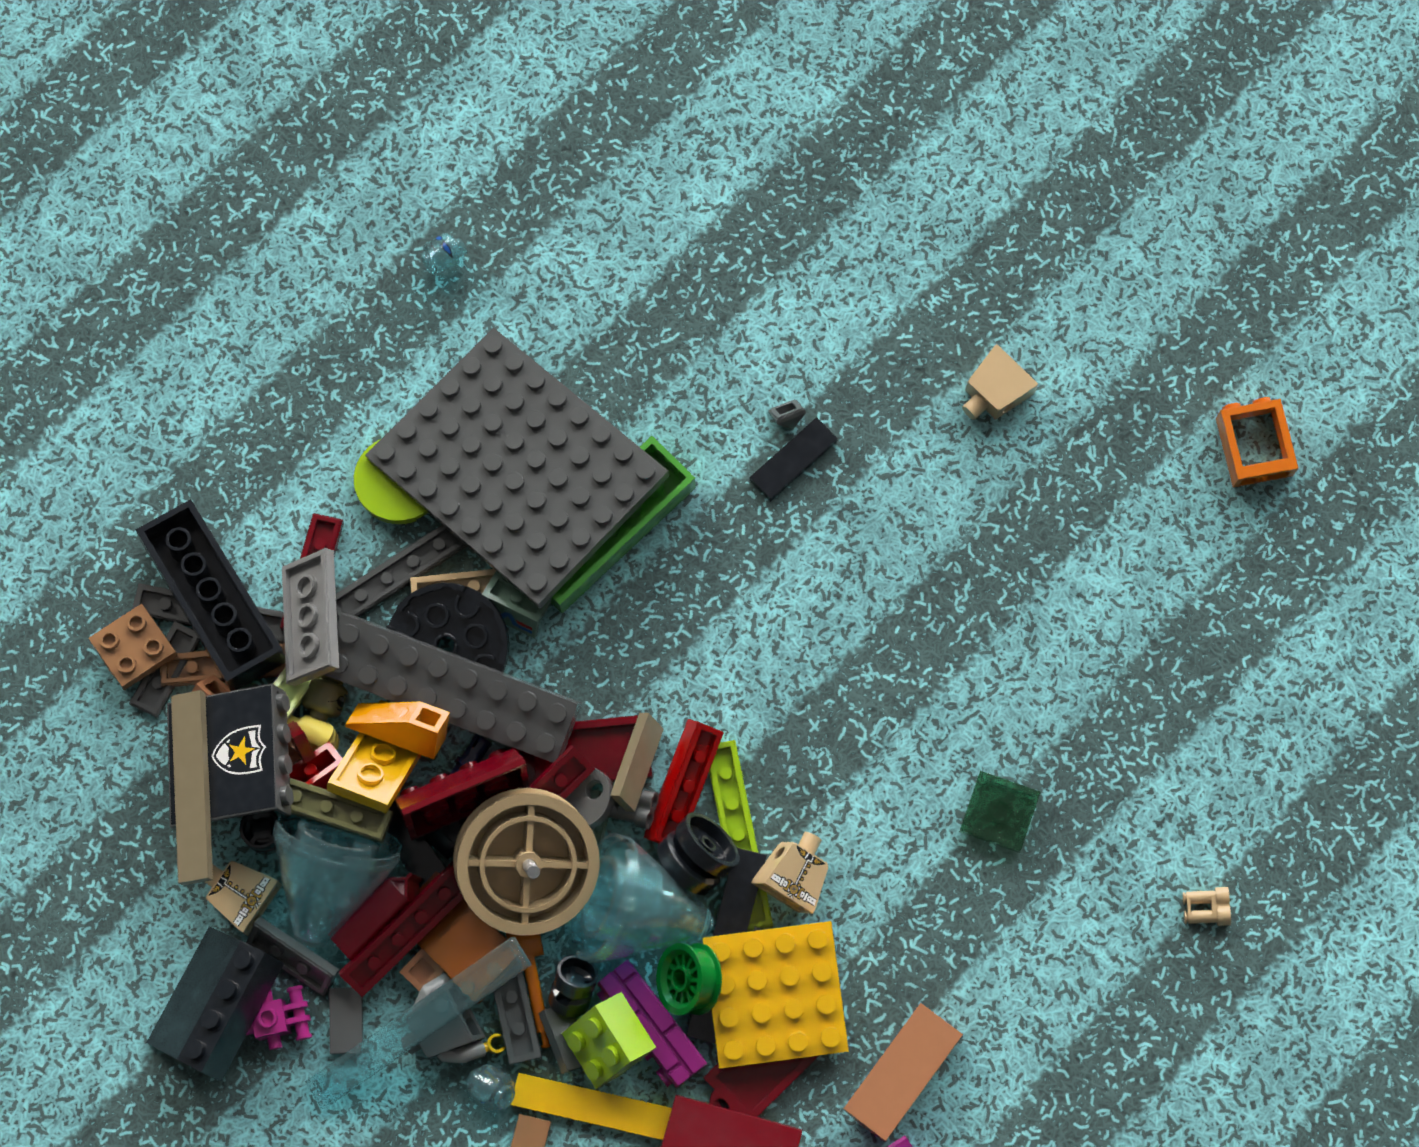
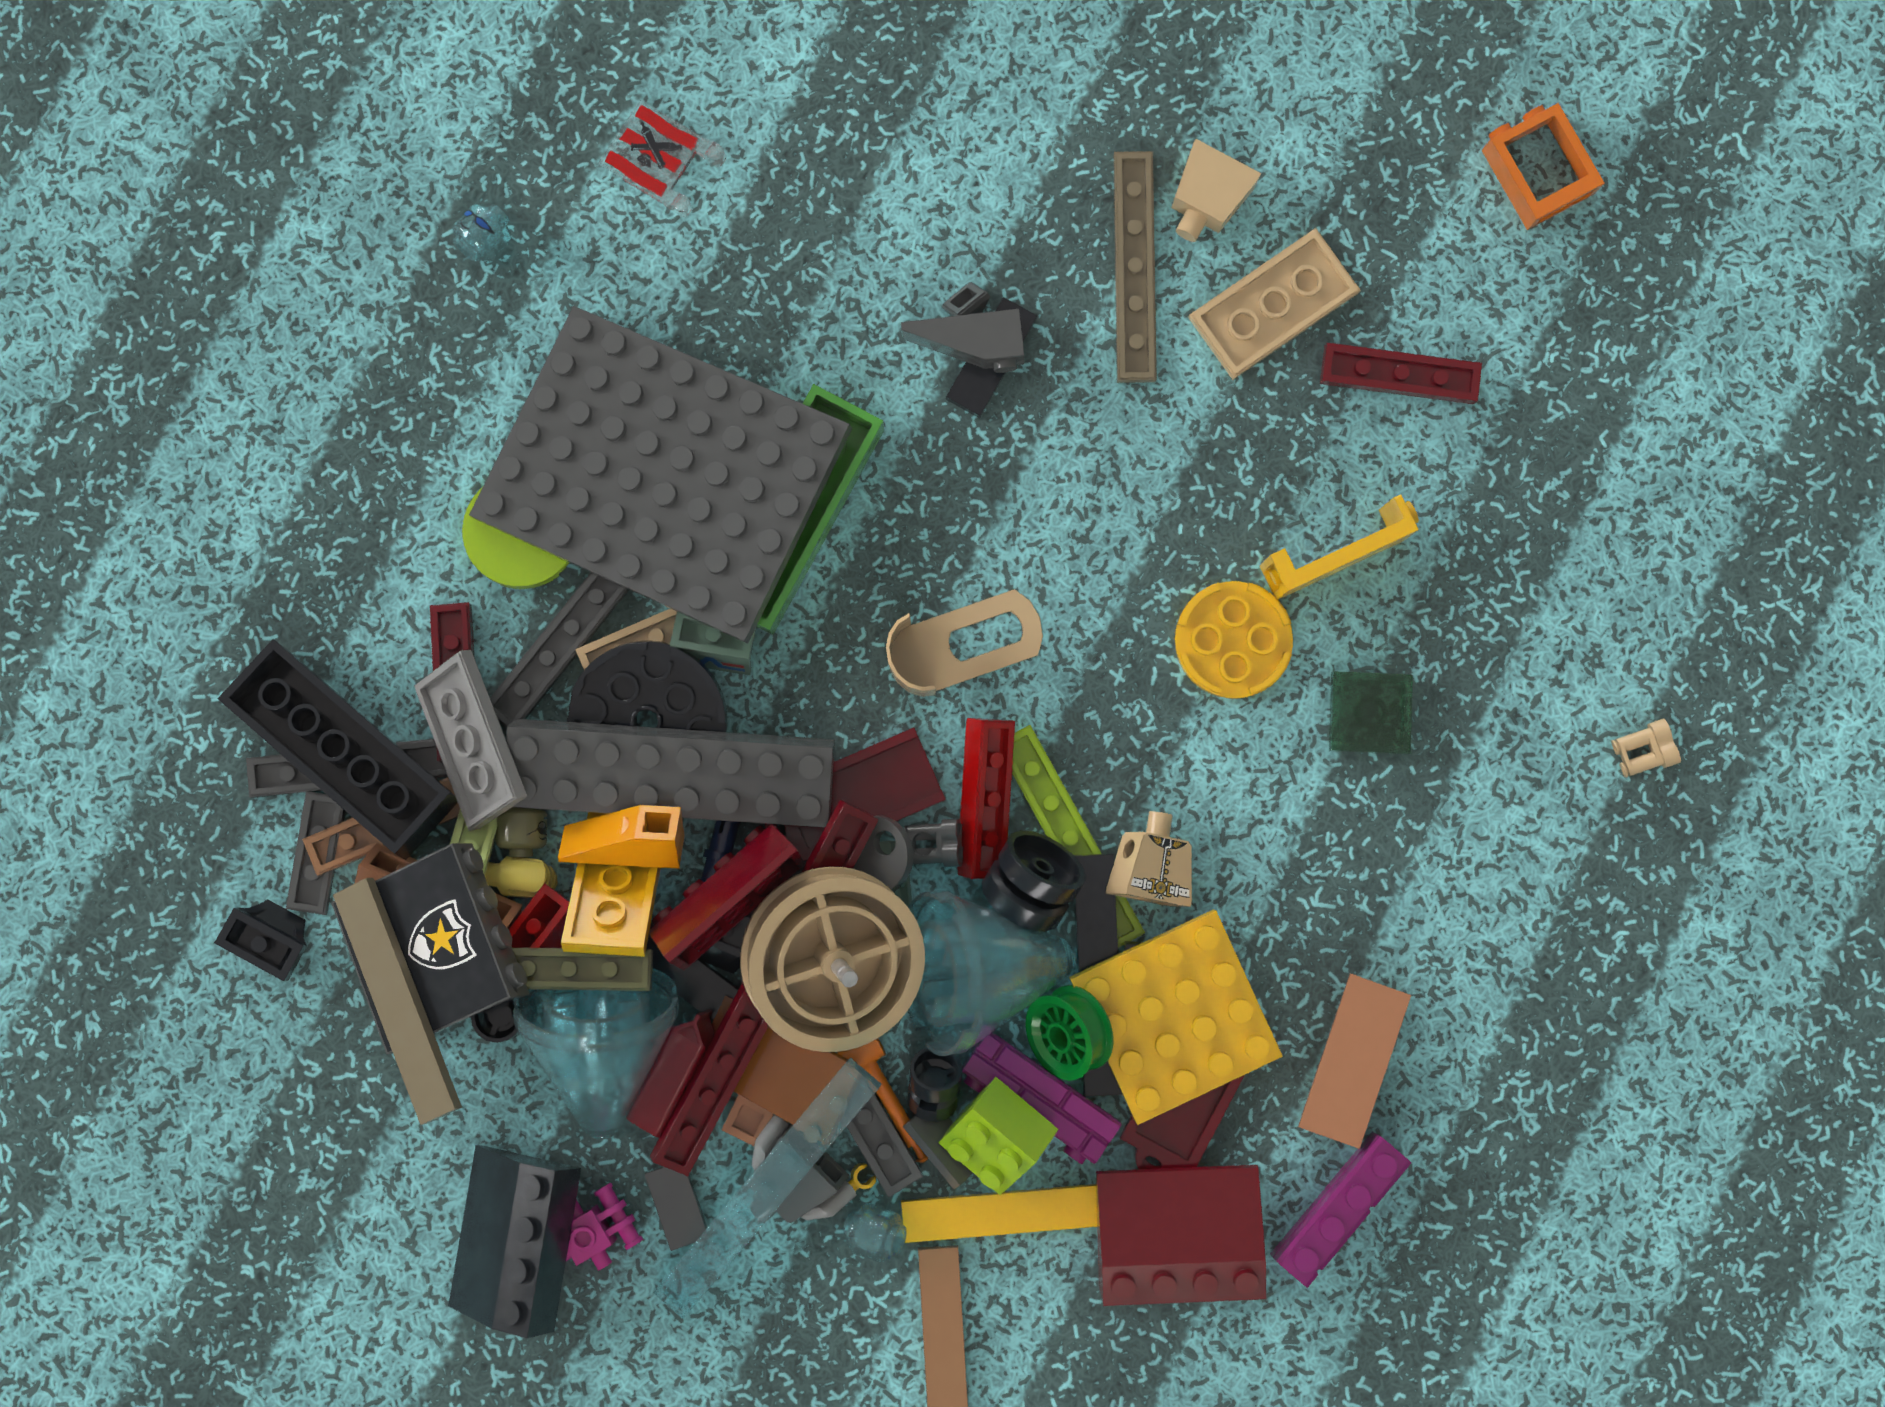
camera: 20 degrees left, 10 degrees up
(106, 719) = (265, 937): none -> black slope
(132, 646) = (265, 840): medium nougat plate -> none
(241, 894) = (500, 1098): tan torso -> none
(297, 958) = (587, 1151): dark grey tile -> none
(301, 742) = (510, 897): dark red tile -> none
(590, 237) = (655, 153): none -> flag
(637, 762) = (923, 791): dark tan tile -> none
(669, 663) = (922, 655): none -> tan piece
(786, 440) = (978, 338): none -> dark grey slope
(912, 724) = (1234, 639): none -> yellow tile
(923, 425) = (1134, 267): none -> dark tan tile
(1011, 685) = (1284, 580): none -> yellow panel
(1021, 484) = (1274, 303): none -> tan tile
(1101, 563) = (1401, 373): none -> dark red plate

